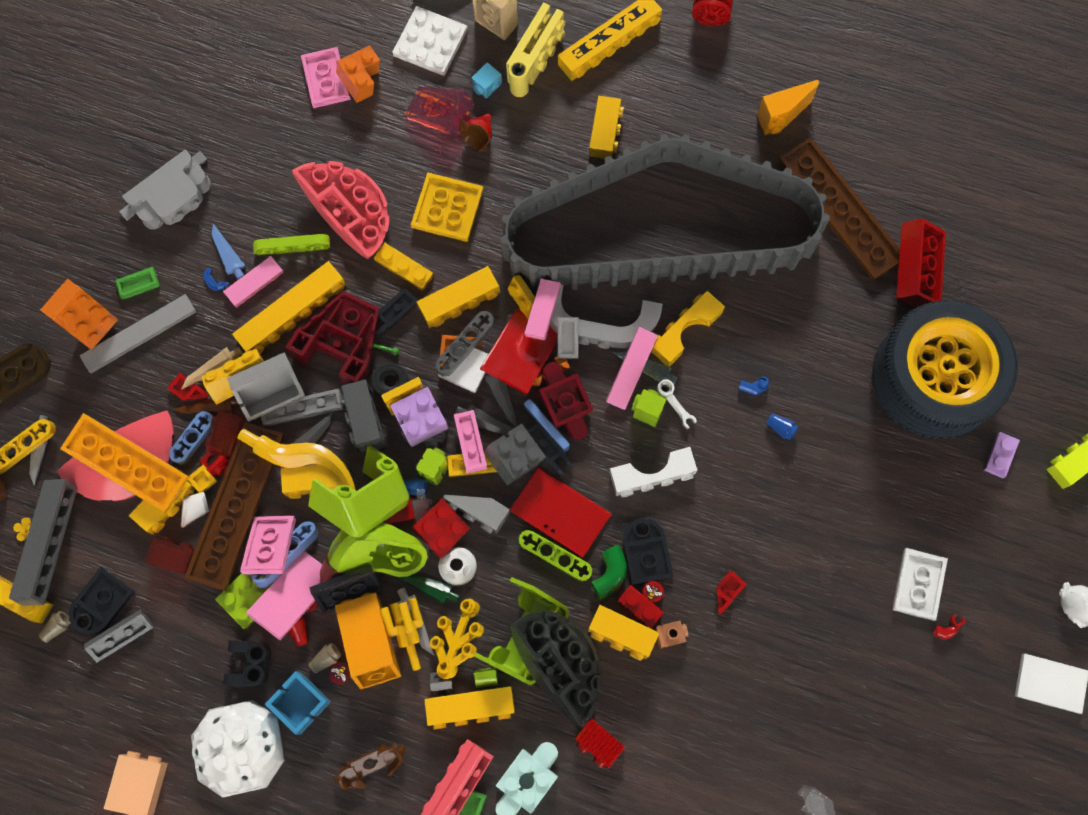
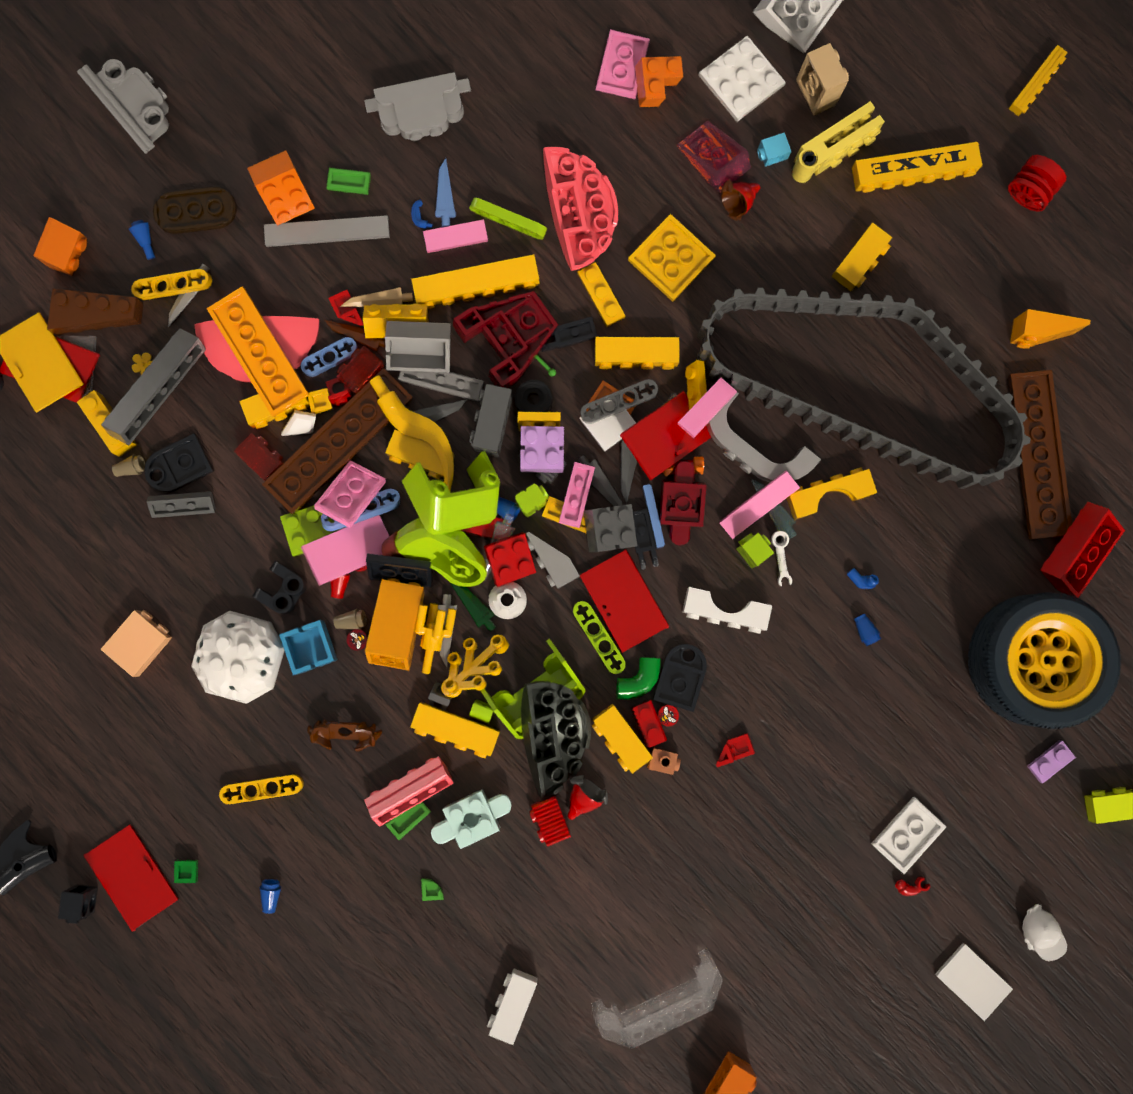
camera: 20 degrees right, 10 degrees up
(567, 337) = (716, 446): light grey tile -> none
(619, 704) = (585, 797): none -> hat

